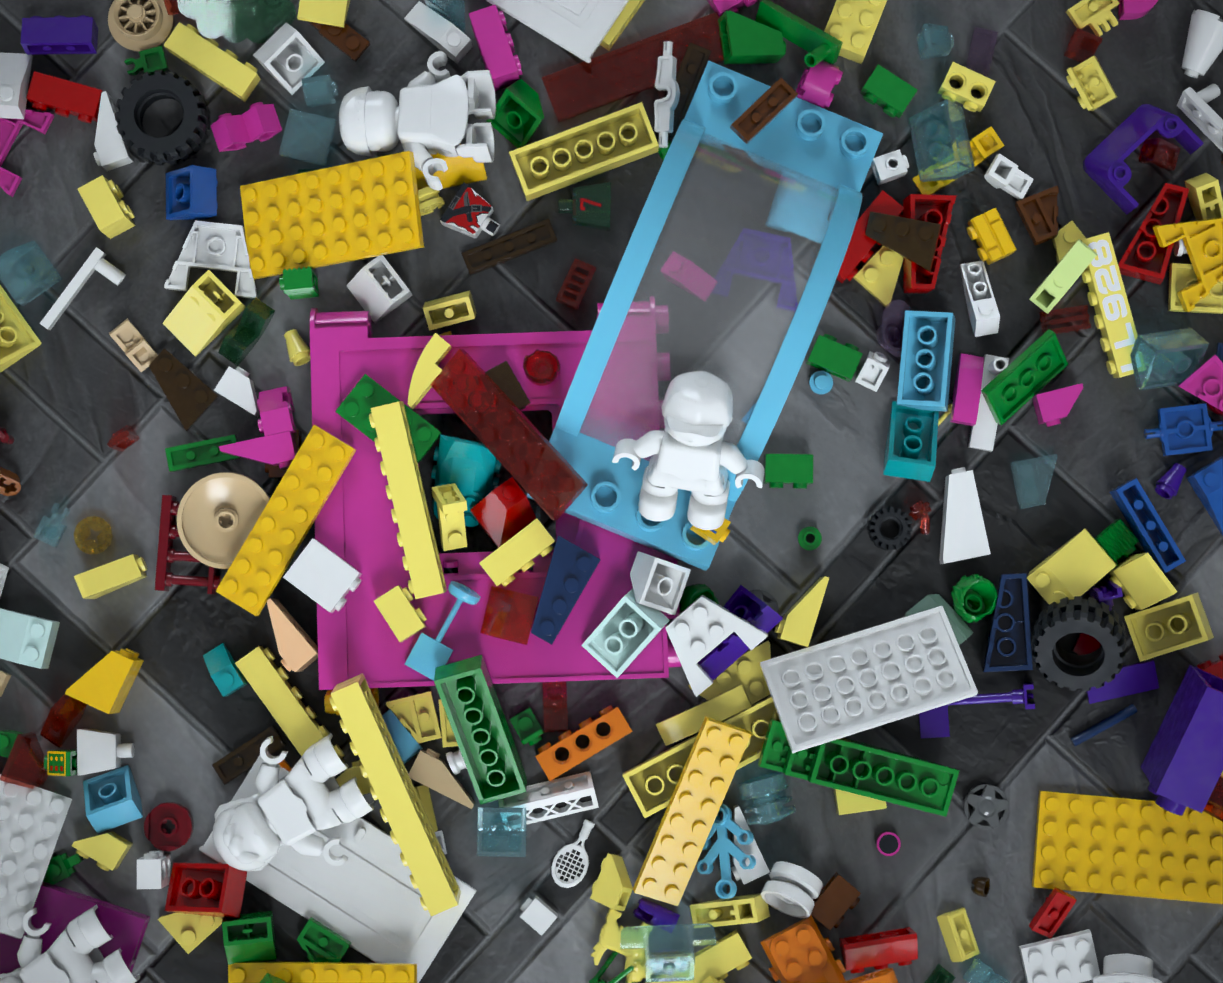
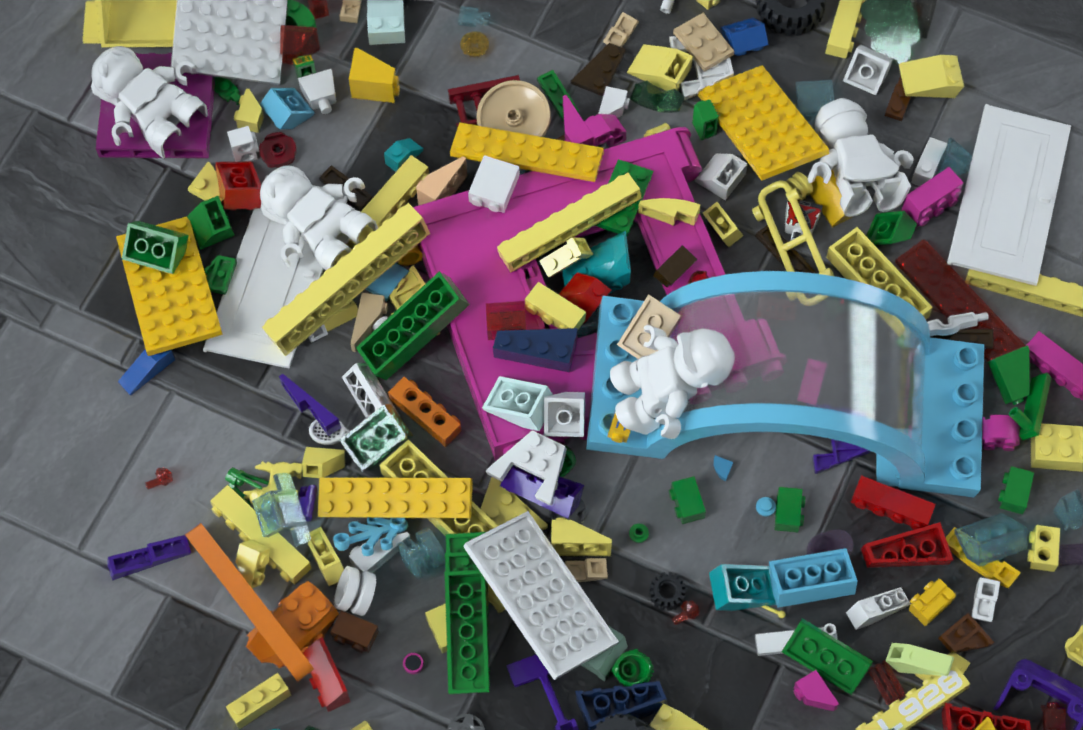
camera: 75 degrees right, 20 degrees down
(62, 719) = (337, 59): clear red slope -> none
(111, 576) = (447, 60): light yellow slope -> none
(123, 438) = (550, 40): clear red slope -> none
(187, 248) = (703, 42): none -> tan plate
(234, 131) = (800, 50): dark pink brick -> none
(319, 90) = (853, 91): clear light blue brick -> none
(400, 613) = (482, 243): light yellow brick -> none
(430, 652) = (461, 273): medium azure piece -> none
(502, 832) = (339, 370): clear light blue slope -> none
(509, 435) = (641, 271): clear red plate -> none
(527, 727) = (424, 370): green bracket -> none
(527, 886) = (304, 401): none -> dark purple slope
(537, 914) = (282, 416): white brick -> none
(555, 706) = (448, 385): clear red slope -> none
(562, 254) = (762, 212): none -> light yellow bar
(594, 448) = (653, 314): none -> tan plate
(608, 812) = (376, 437): none -> clear green brick
(691, 720) = (480, 494): light yellow slope -> none
(764, 110) = (959, 387): reddish brown plate -> none
(835, 613) = (588, 570): none -> tan slope
(873, 370) = (789, 542): white bracket -> none
(881, 274) = (870, 527): light yellow wing -> none
(889, 166) = (956, 508): white brick -> none
(908, 237) = (904, 527): dark brown wing -> none
(962, 520) = (693, 644): white slope -> none
(967, 390) = (789, 617): dark pink slope -> none
(1033, 480) = (746, 694): clear light blue wing -> none

